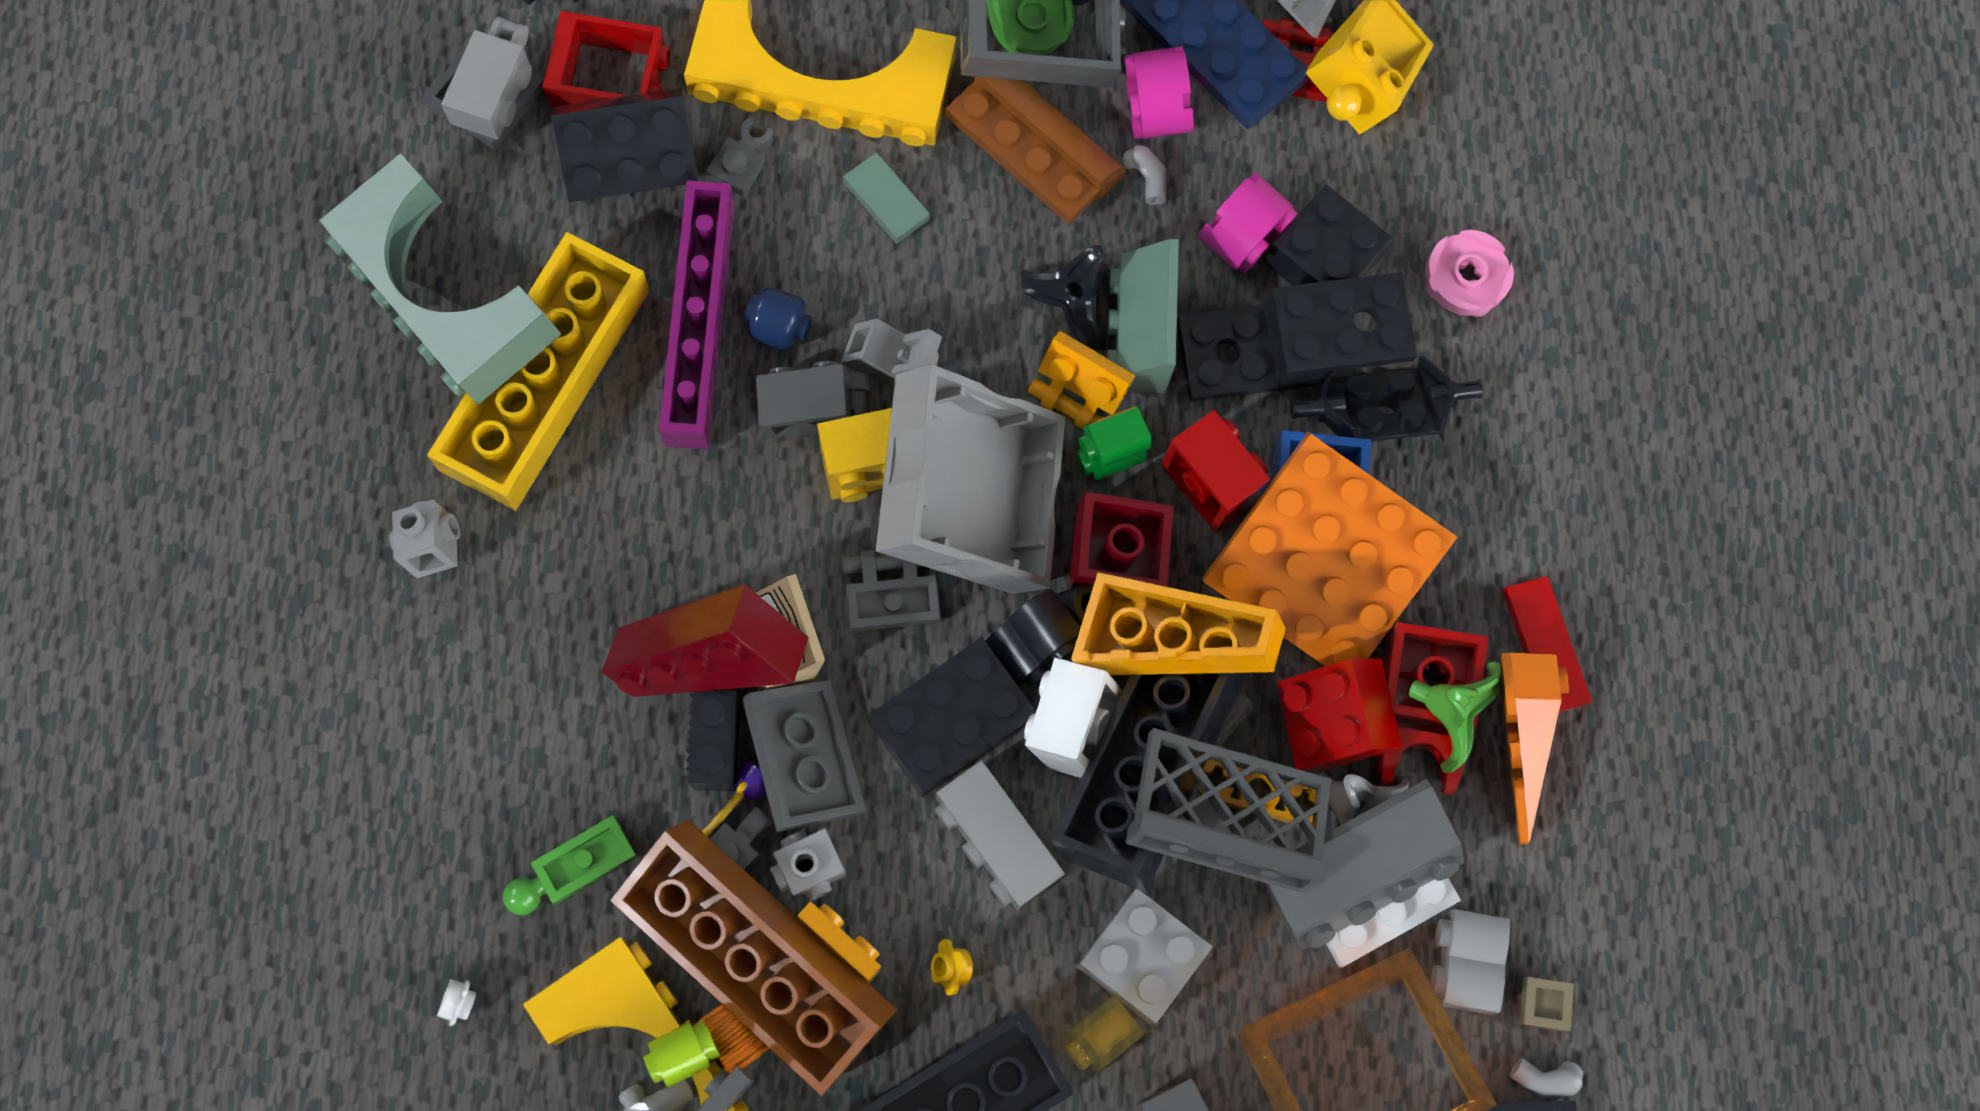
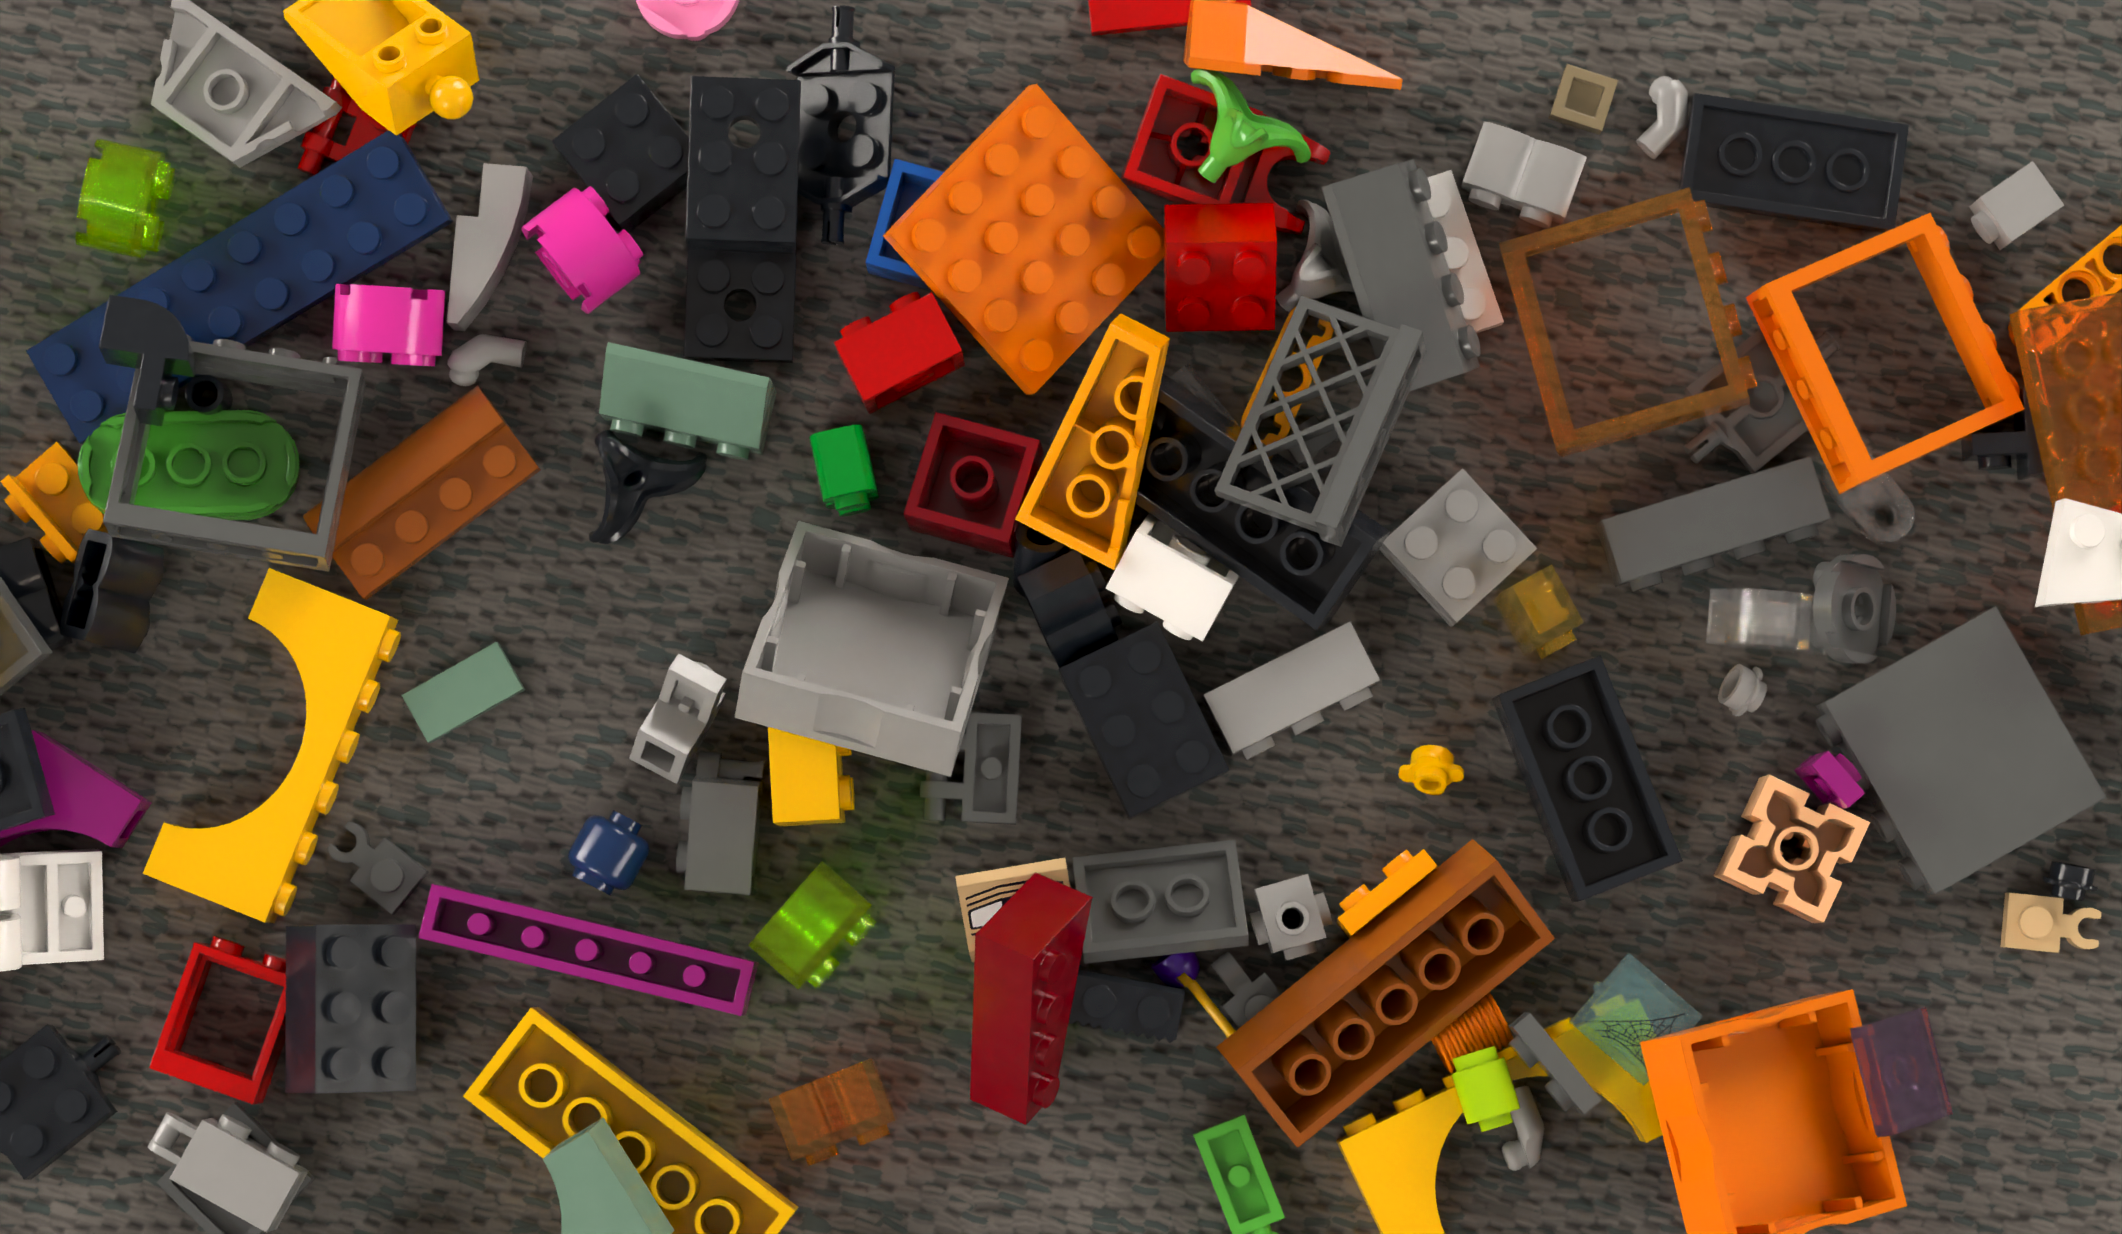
camera: 70 degrees left, 10 degrees up
(596, 522) = (834, 1110): none -> clear orange brick
(740, 478) = (814, 927): none -> clear neon green brick
(1084, 373) = (749, 486): light orange plate -> none
(1235, 155) = (487, 242): none -> light grey slope

